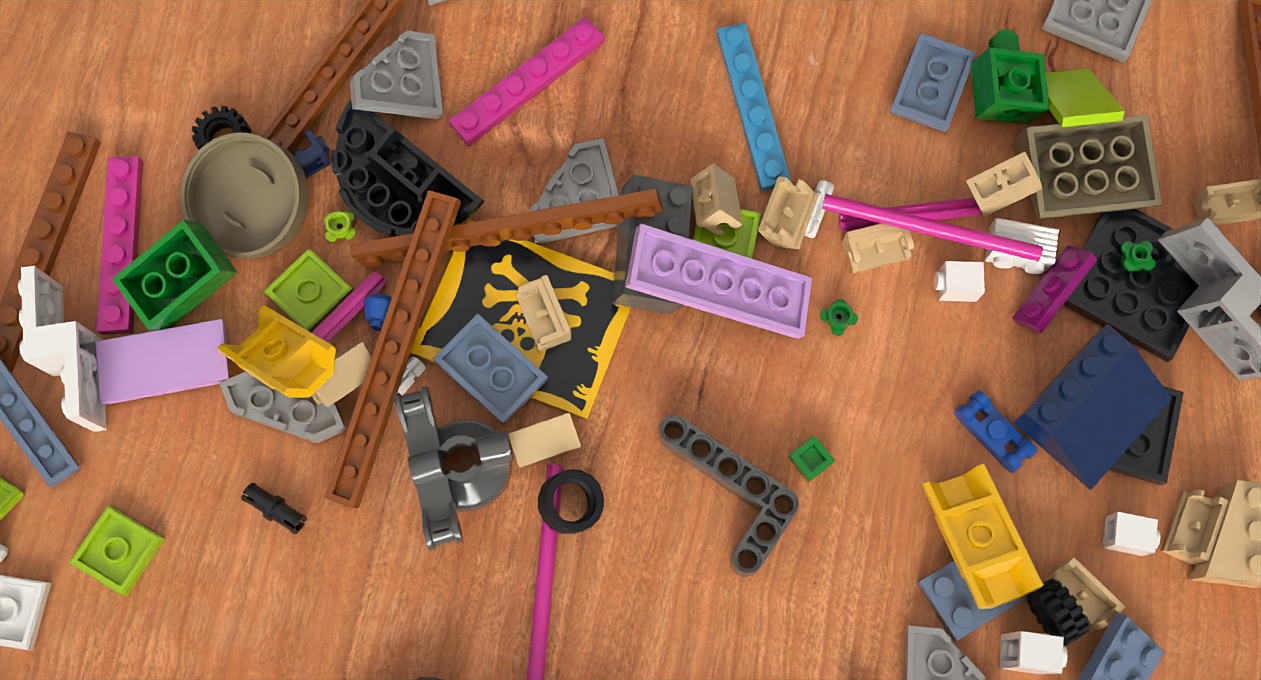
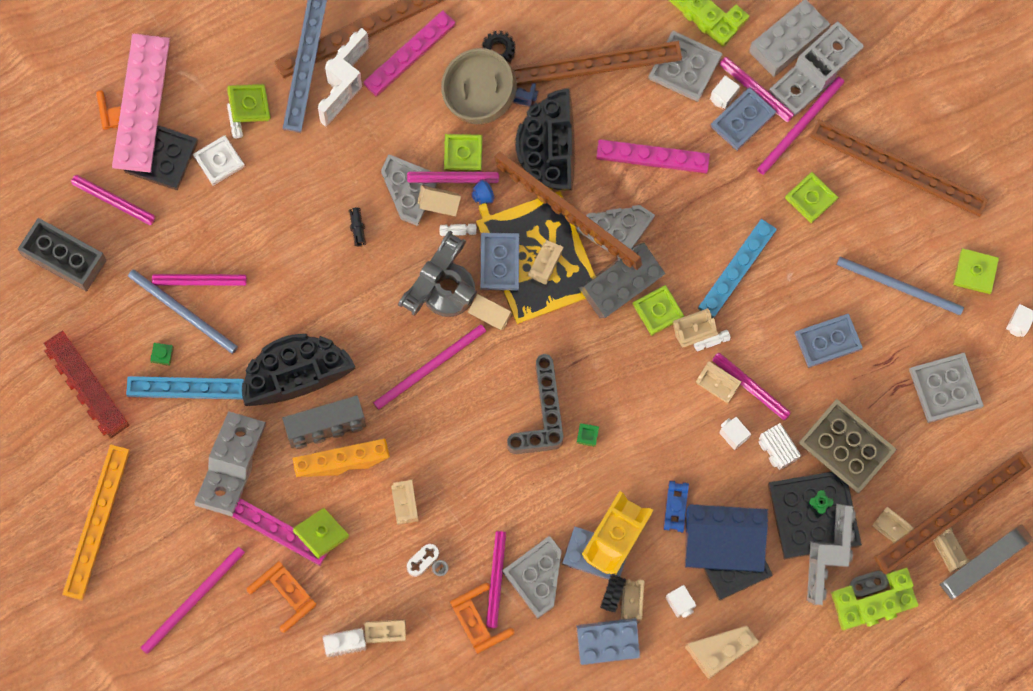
camera: 45 degrees right, 0 degrees up
(117, 550) = (282, 180): lime tile -> none
(162, 362) = (376, 122): lavender tile -> none
(174, 275) = (416, 91): green brick -> none
(284, 356) = (424, 169): yellow piece -> none
(336, 218) = (504, 133): lime plate -> none
(392, 349) = (470, 211): dark orange plate -> none
(401, 79) = (598, 101): light grey plate -> none
(593, 493) = (458, 346): black tyre -> none
(715, 199) = (670, 290): tan hinge -> none
(718, 281) = (630, 324): lavender plate -> none
(839, 308) = (672, 389): green plate -> none
(932, 227) = (745, 396): dark pink piece -> none
(1004, 184) = (797, 411): tan hinge -> none
(1009, 82) = (858, 373): green brick -> none
(1032, 653) = (583, 595): white brick -> none
(1054, 288) = (770, 477): magenta plate -> none
(1081, 99) = (879, 411): lime tile -> none
(1195, 527) = (710, 627): tan hinge -> none

